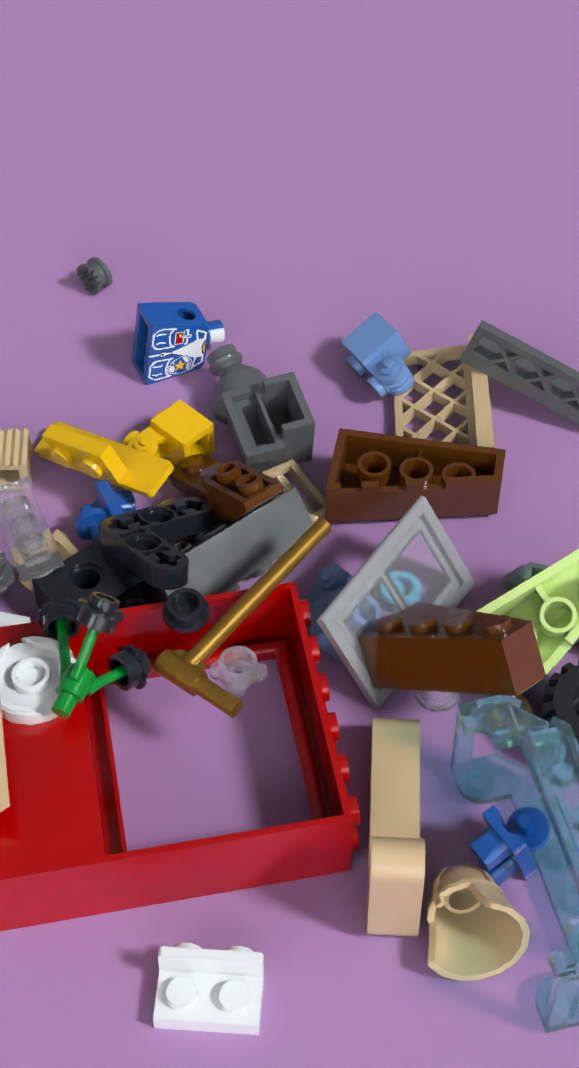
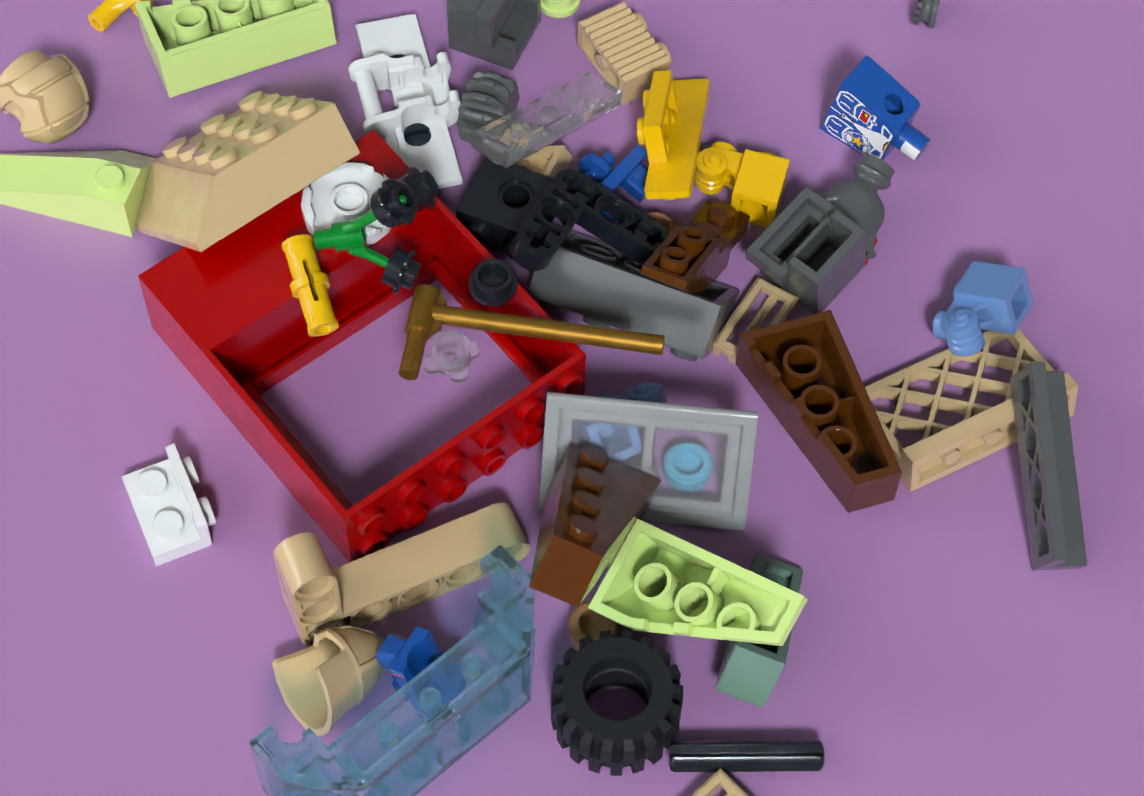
camera: 60 degrees right, 10 degrees up
(99, 739) = (317, 312): none -> yellow pin

